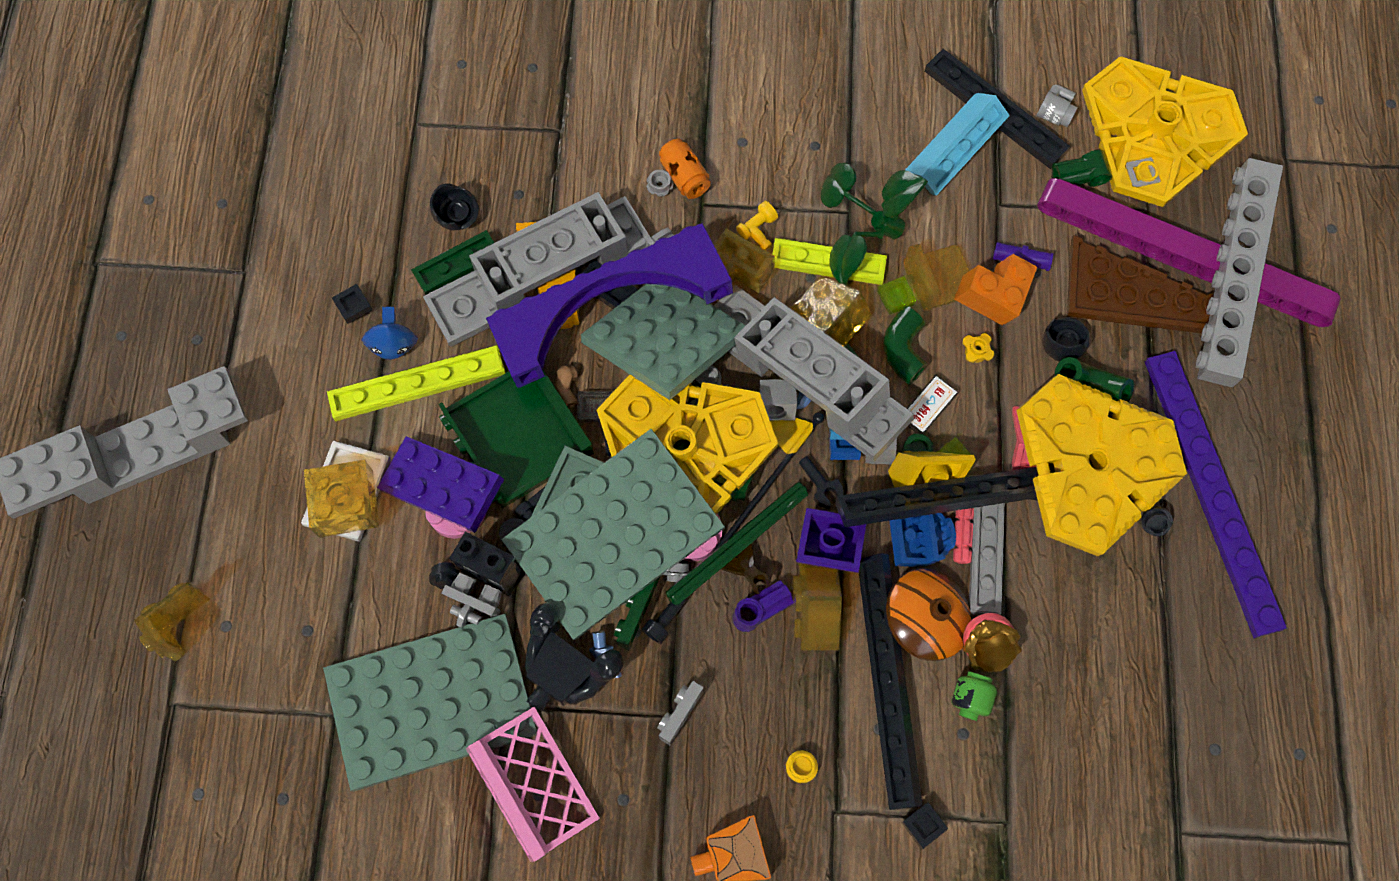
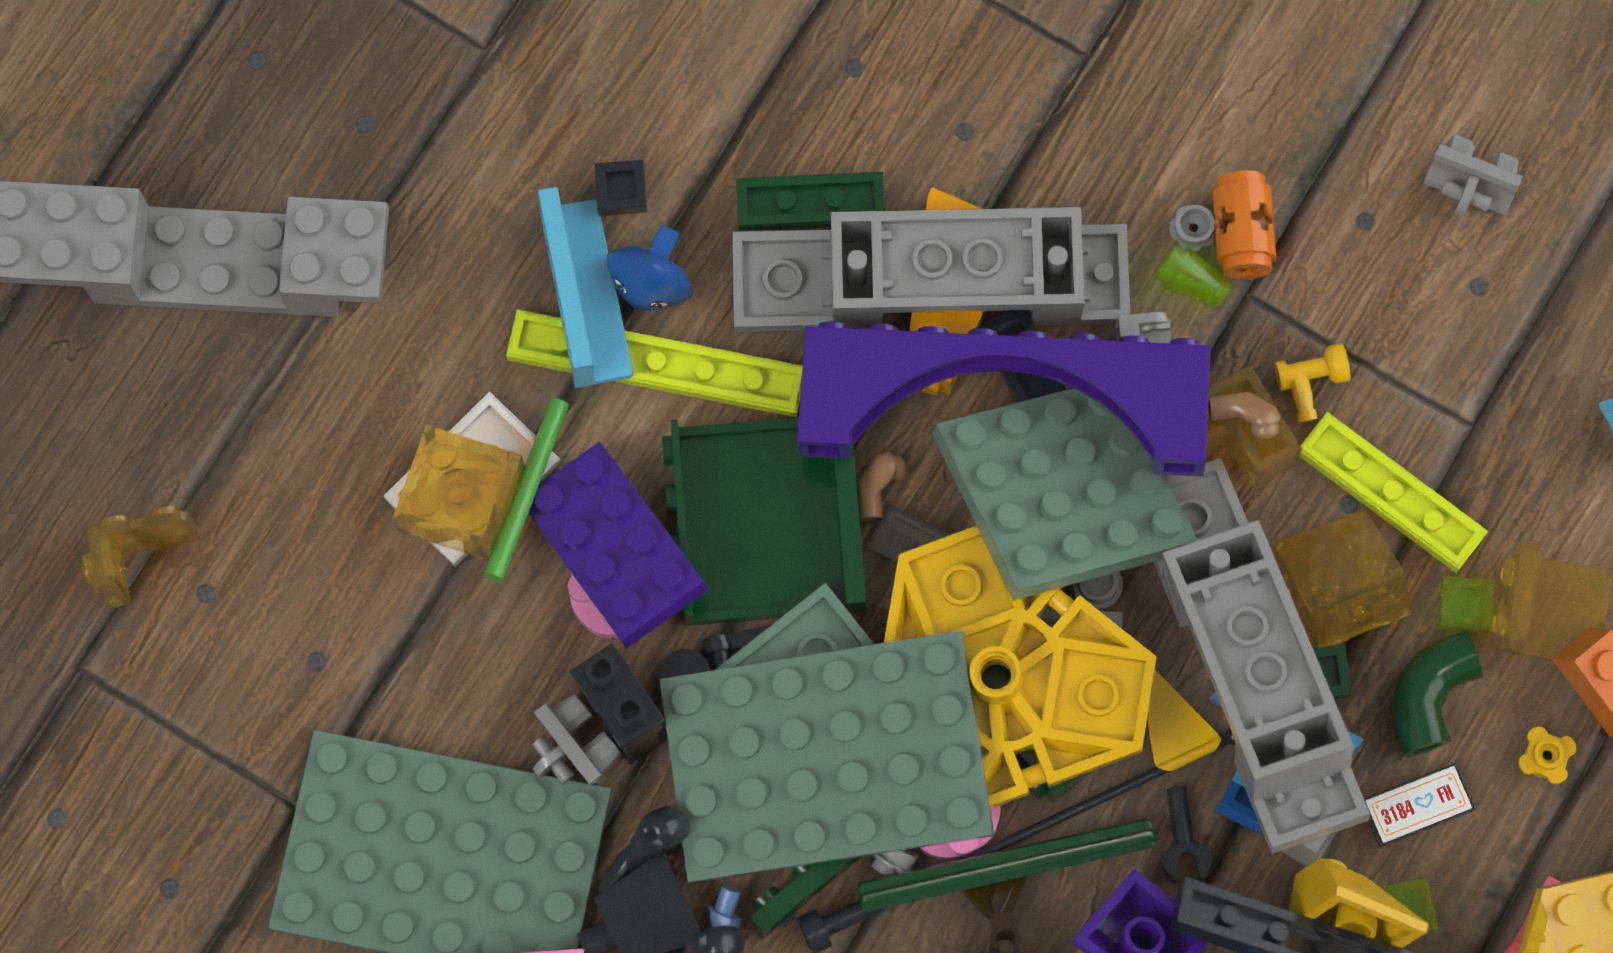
camera: 30 degrees right, 5 degrees up
(358, 363) = (584, 290): none -> medium azure panel
(378, 482) = (526, 490): none -> bright green bar
(443, 574) = (550, 684): black plate -> none
(453, 207) = (851, 110): black hair -> none
(672, 206) = (1193, 277): none -> clear neon green cone
(746, 247) = (1248, 407): none -> medium nougat arm
(779, 399) = (1181, 677): light grey brick -> none
(784, 95) = (1472, 179): none -> light grey hips
(898, 194) = (1545, 453): dark green plant -> none
(918, 443) = (1365, 858): dark green tile -> none

